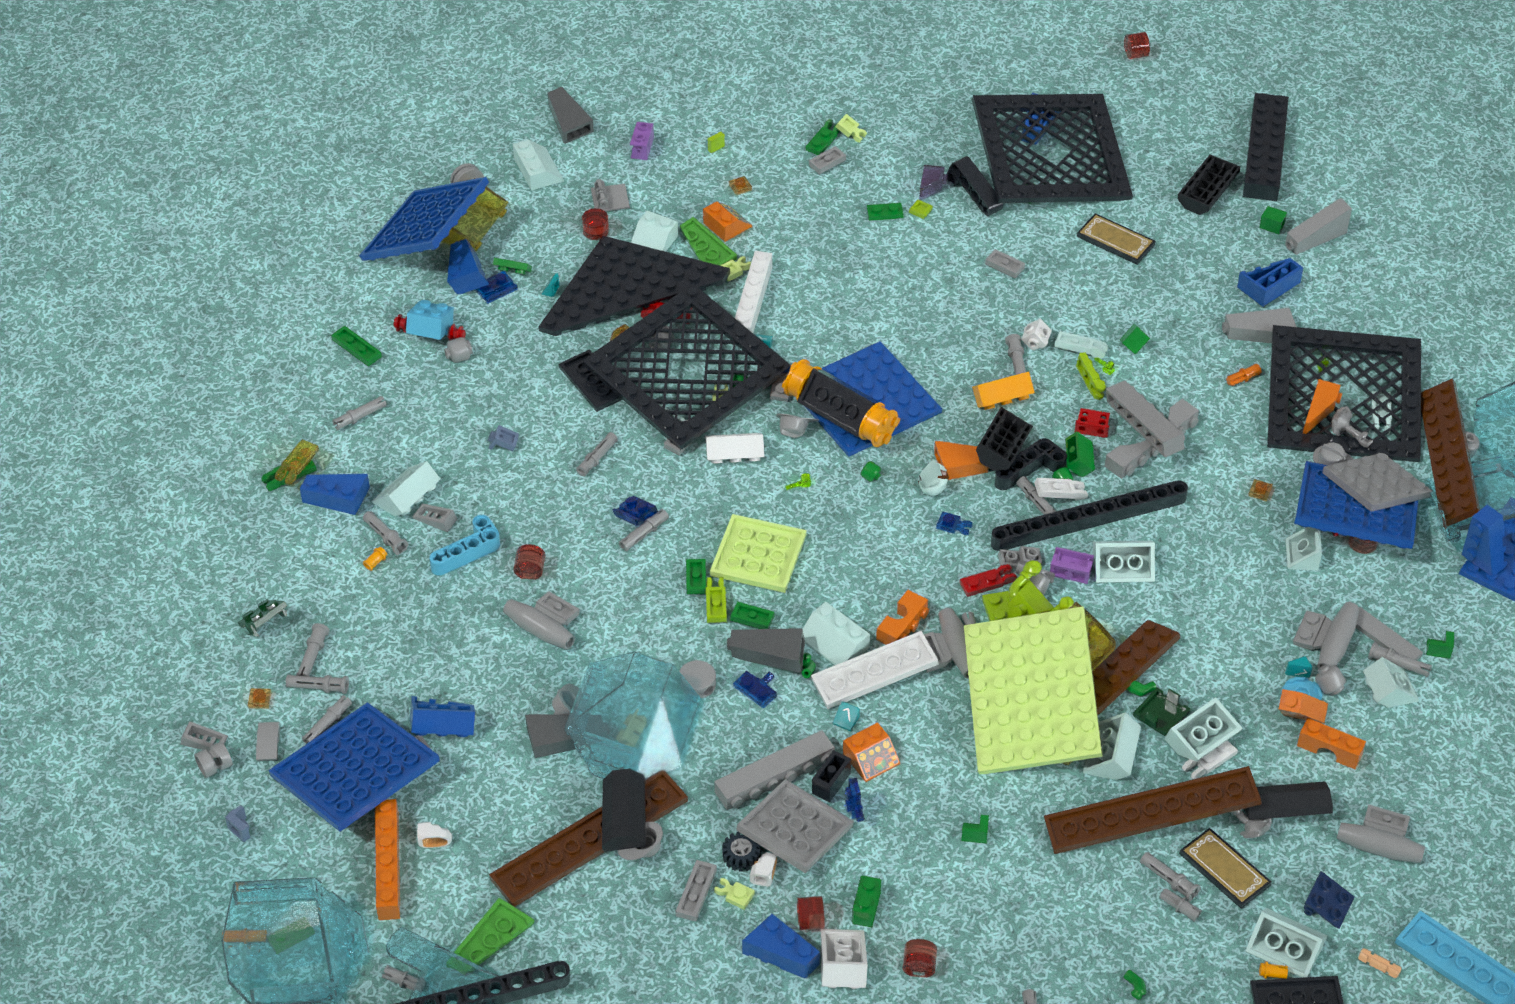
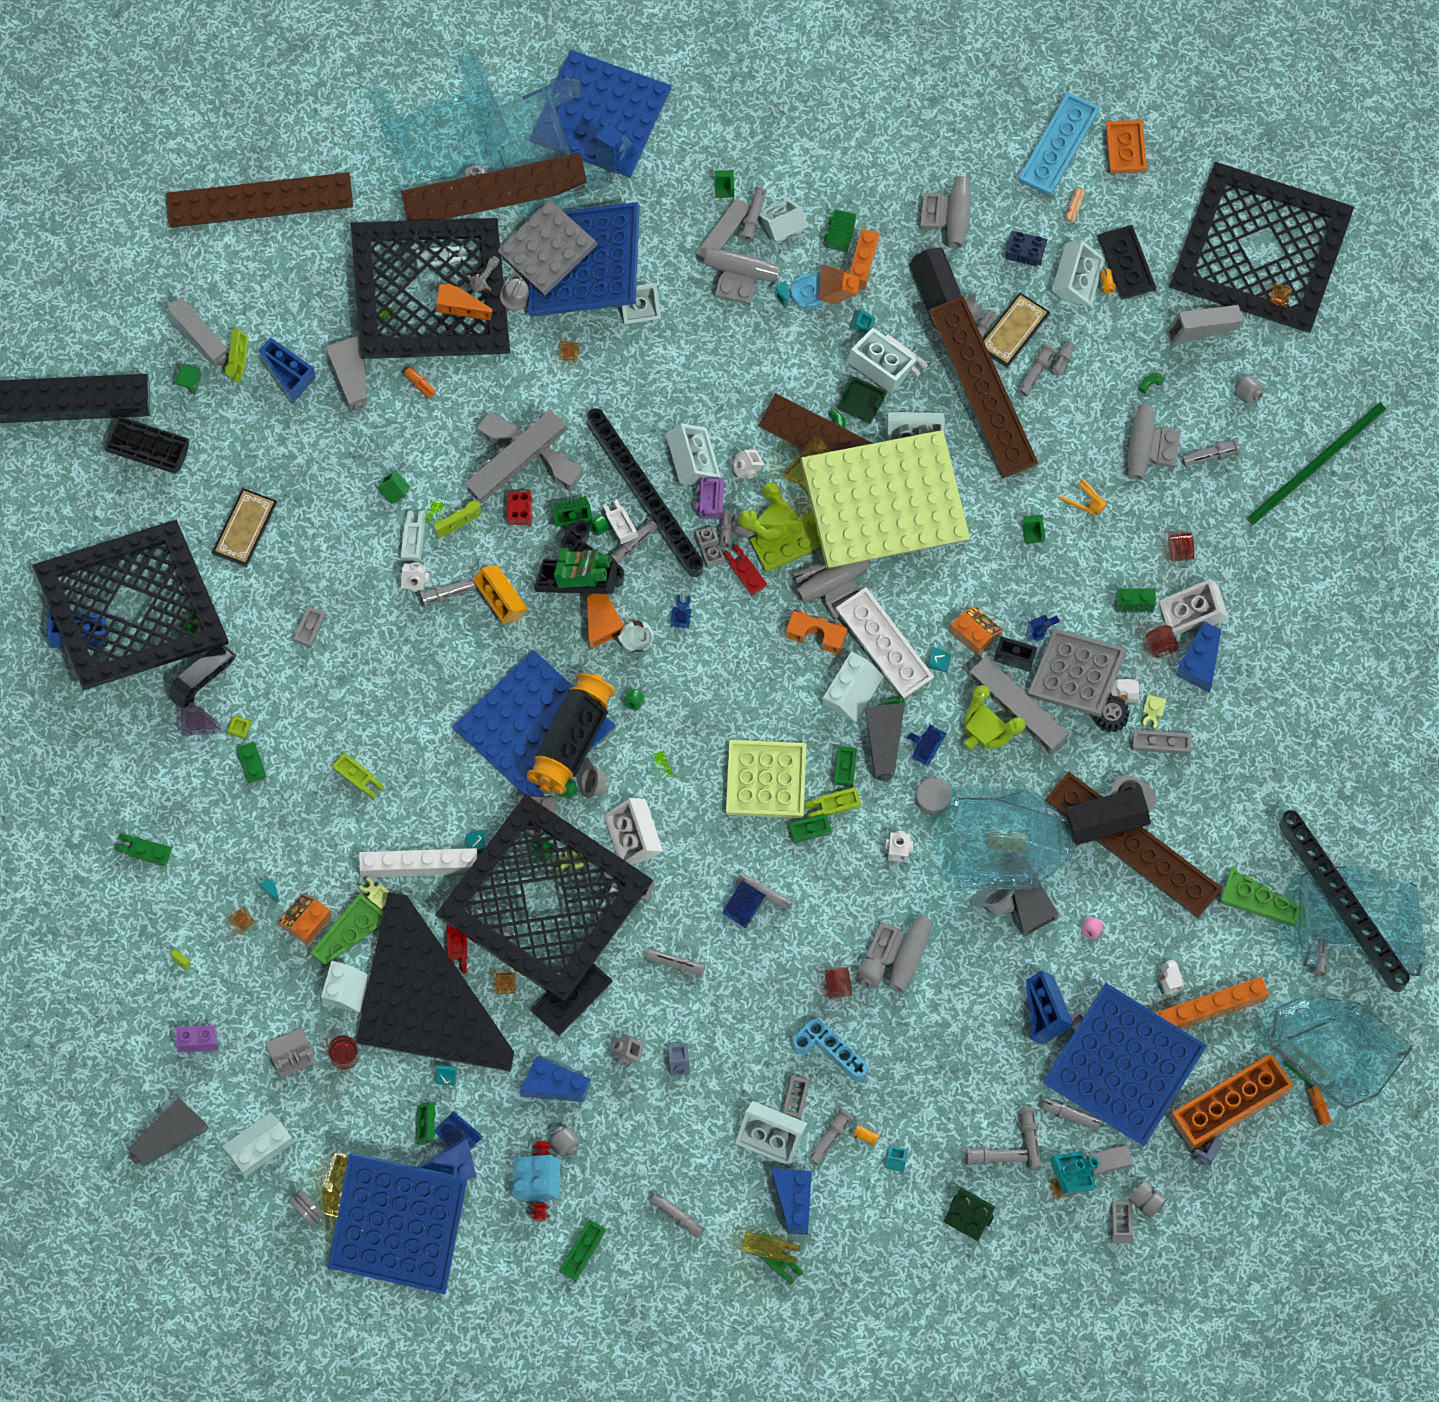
camera: 105 degrees left, 20 degrees up
(265, 702) = (1074, 1172): none -> teal plate
(275, 836) = (1231, 1102): none -> orange brick
(345, 578) = (896, 1158): none -> teal slope
(512, 782) = (1092, 928): none -> bright pink piece
(514, 350) = (552, 1081): none -> blue wedge
(524, 400) = (626, 1050): none -> light grey brick
(530, 590) = (871, 972): none -> light grey head
(651, 637) = (899, 846): none -> white brick
(758, 203) = (269, 888): none -> teal slope
(761, 734) = (985, 727): none -> lime torso
(793, 407) = (571, 789): none -> green piece
(827, 160) = (183, 837): light grey plate -> none
(850, 127) = (128, 823): yellowish green plate -> none
(850, 273) = (356, 775): none -> lime hinge
(993, 894) = (1096, 503): none -> light orange plant
(1005, 437) = (581, 568): none -> green hips
(1055, 963) = (1150, 444): none -> light grey plate
(1108, 600) = (747, 464): none -> white brick
(1233, 838) = (986, 321): none -> light grey axle
(1257, 733) = (862, 321): none -> teal slope
(1303, 256) = (237, 355): none -> lime hinge
(1330, 679) = (793, 266): light grey head -> none
(1375, 732) = (840, 230): none -> green brick
(1461, 298) = (259, 200): none -> reddish brown plate

